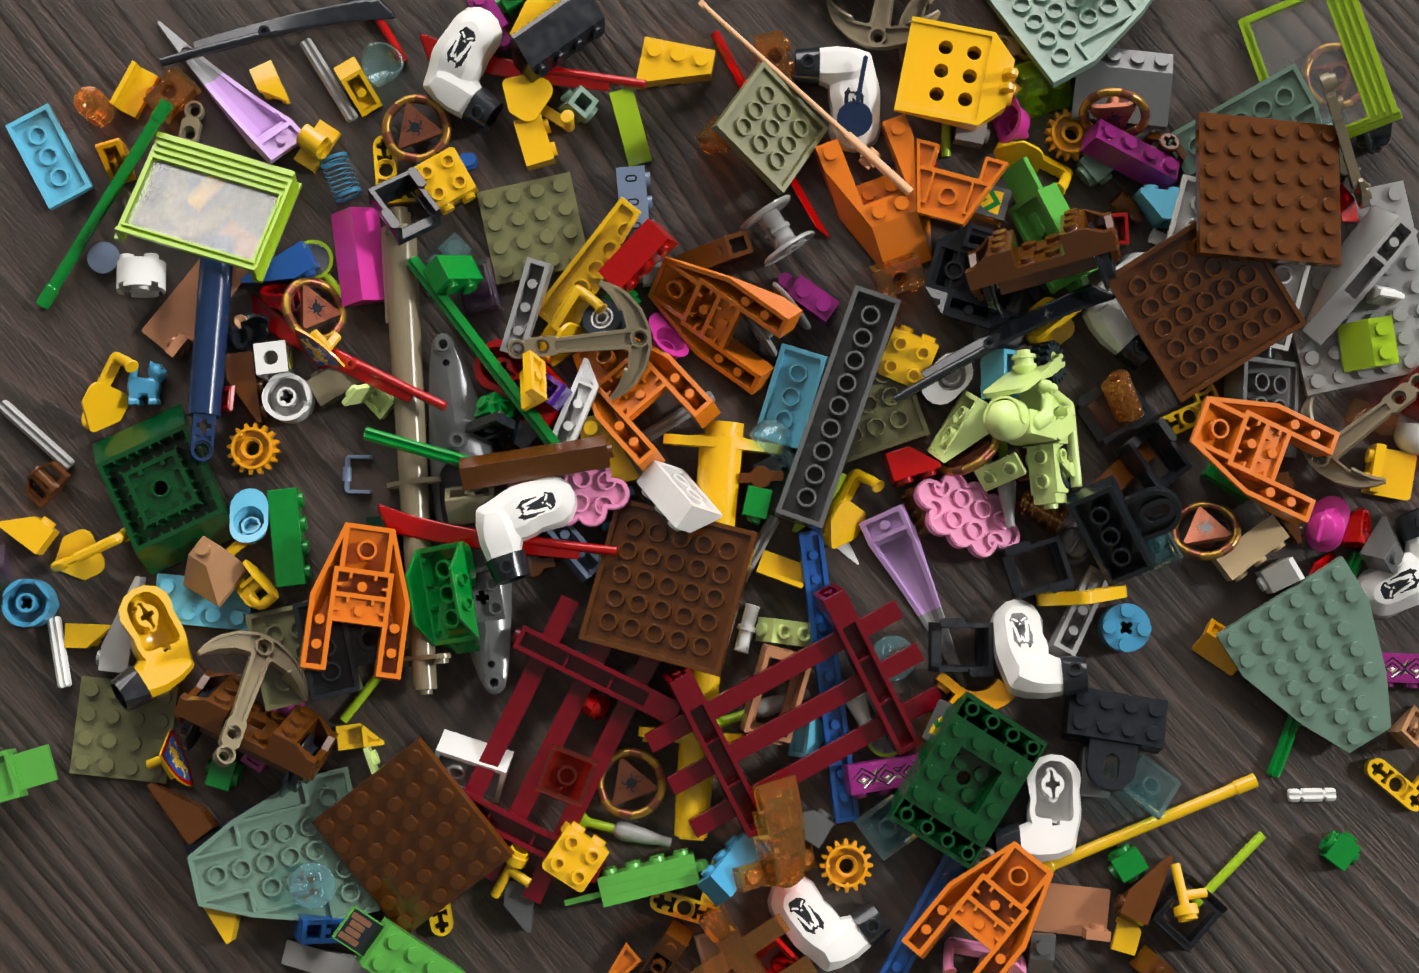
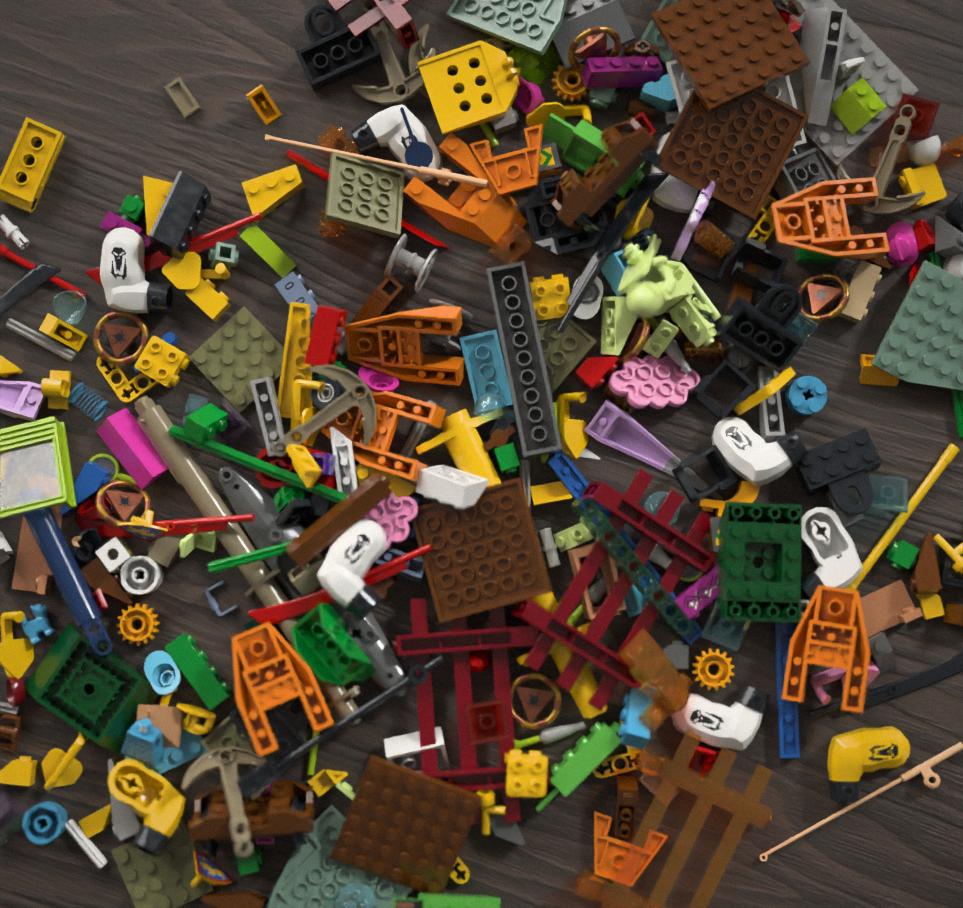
camera: 25 degrees left, 0 degrees up
(80, 444) = (15, 691): none -> dark red hat
(185, 580) = (144, 743): none -> dark azure torso
(299, 690) = (268, 772): none -> black bar
(396, 187) = (131, 386): black piece -> none
(809, 297) = (459, 295): magenta brick -> none
(829, 710) = (640, 569): none -> clear green beam
(1115, 361) = (691, 223): none -> lavender animal
(1278, 575) = (889, 298): white slope -> none

